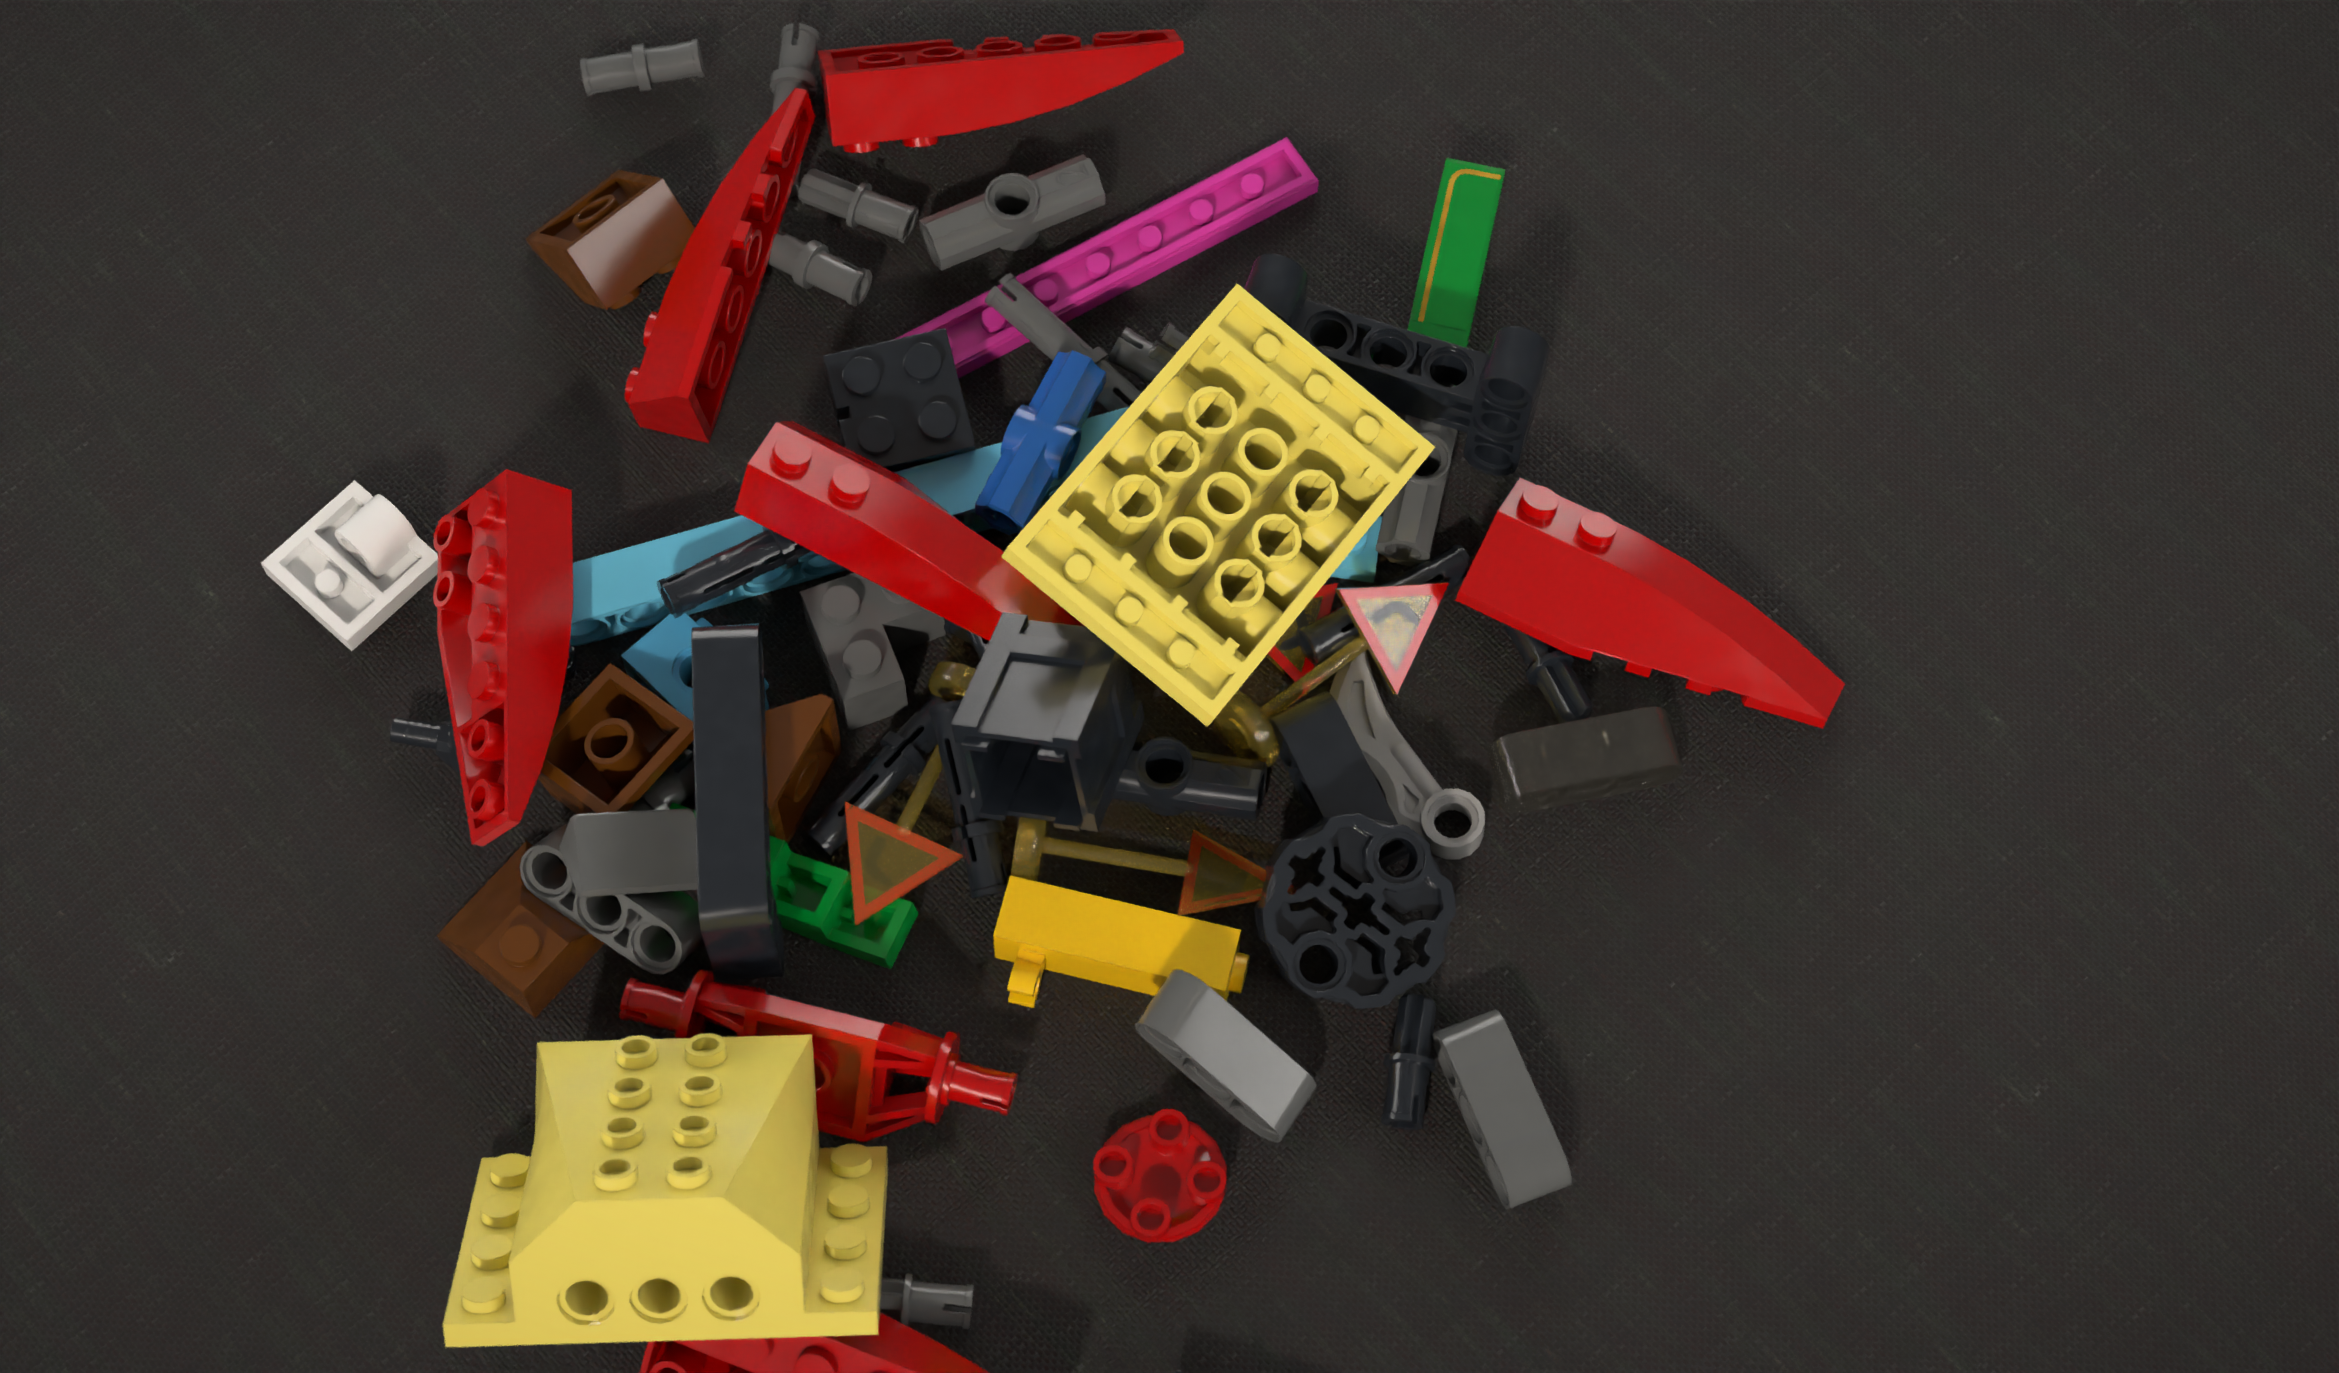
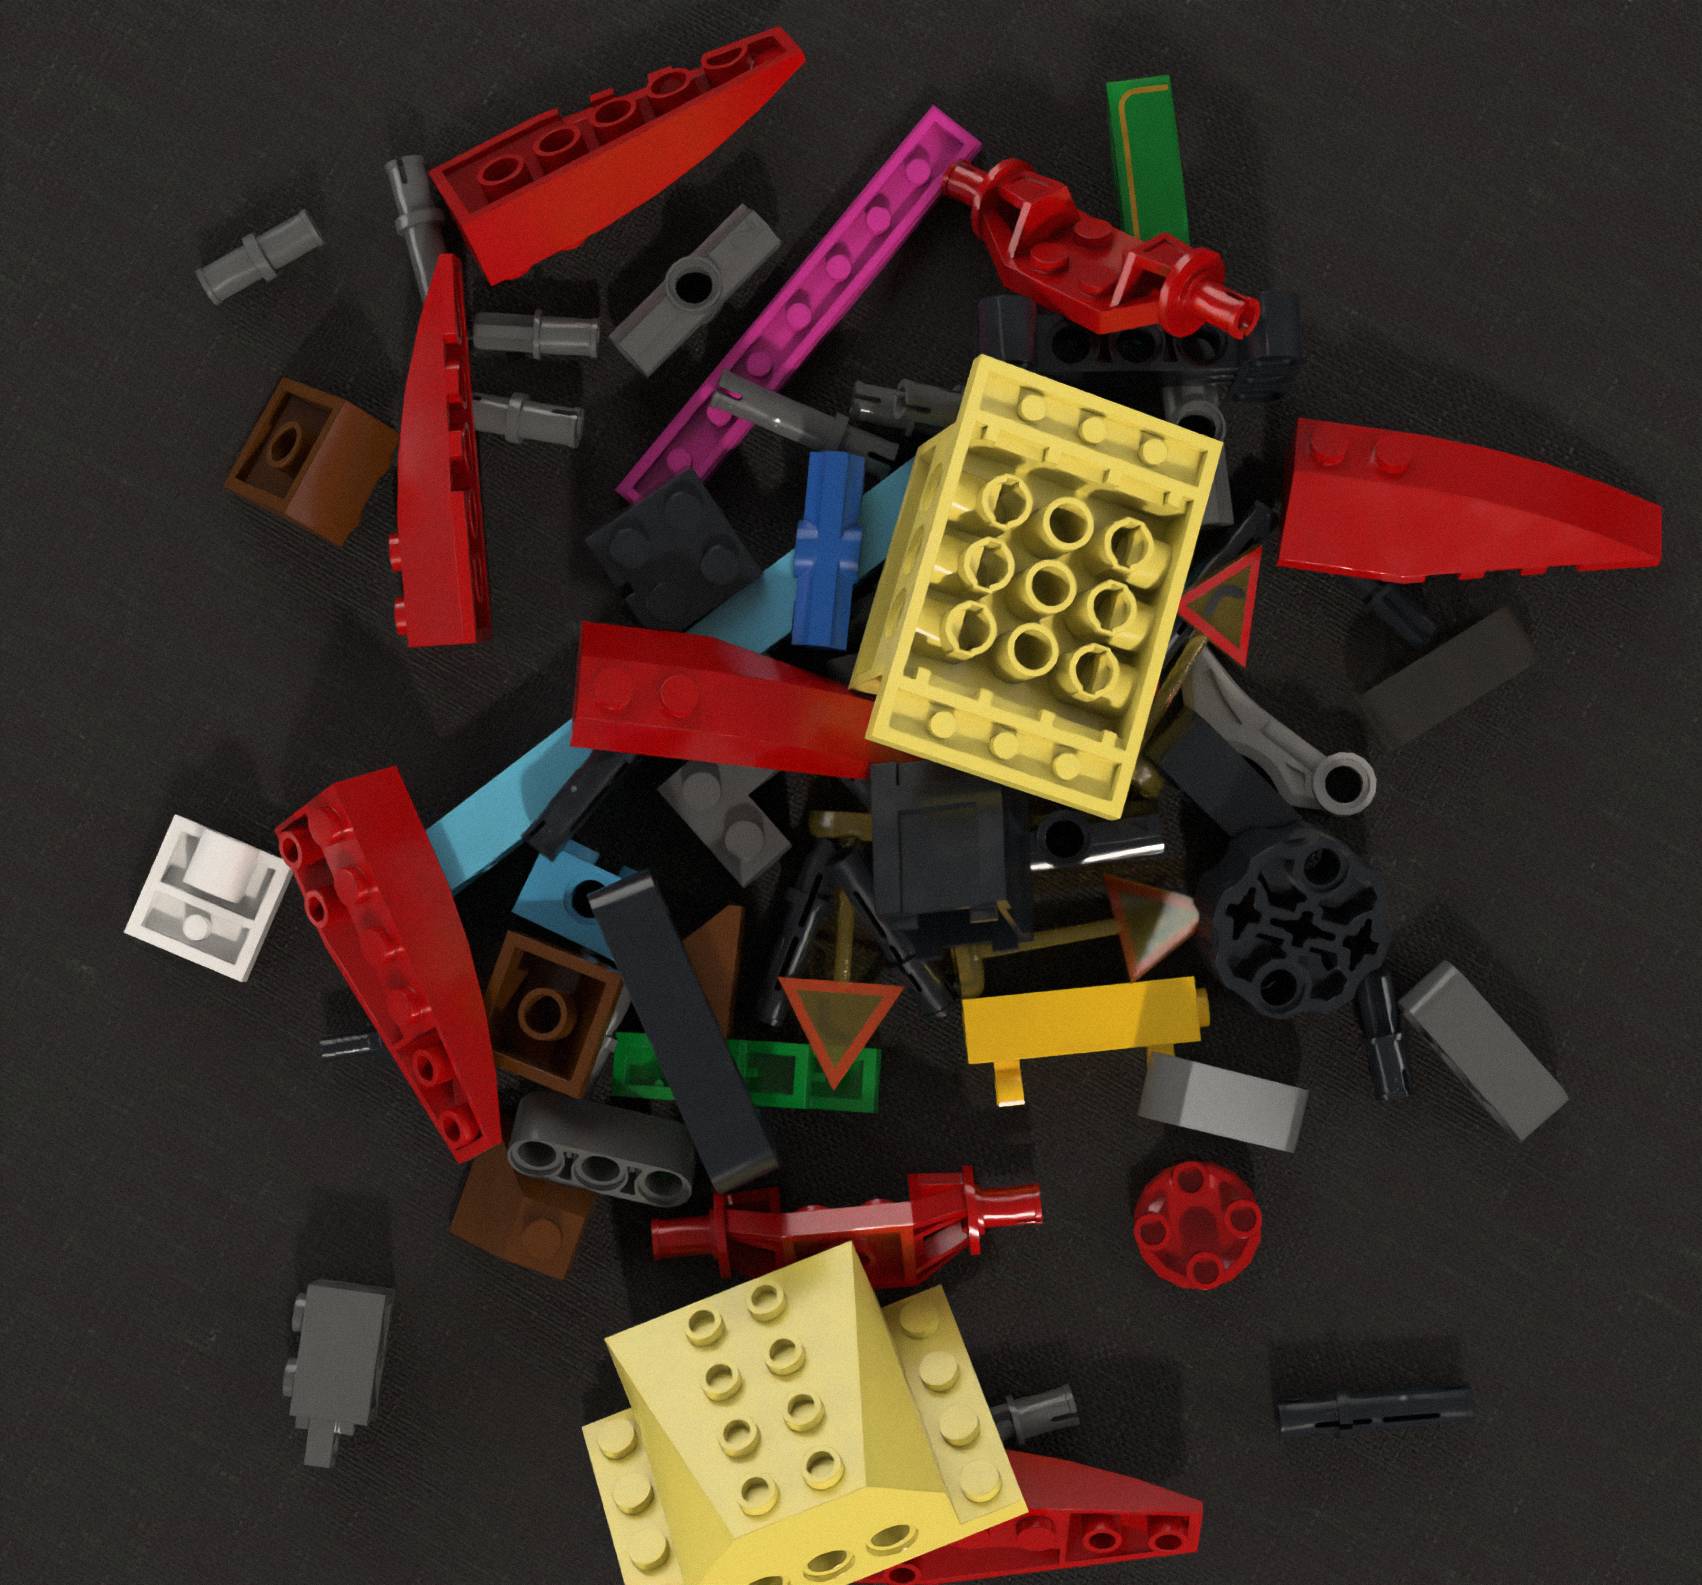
camera: 15 degrees left, 20 degrees up
(277, 1011) = (338, 1362): none -> dark grey hinge
(631, 852) = (611, 1117): dark grey slope -> none
(1350, 274) = (1086, 265): none -> red plate

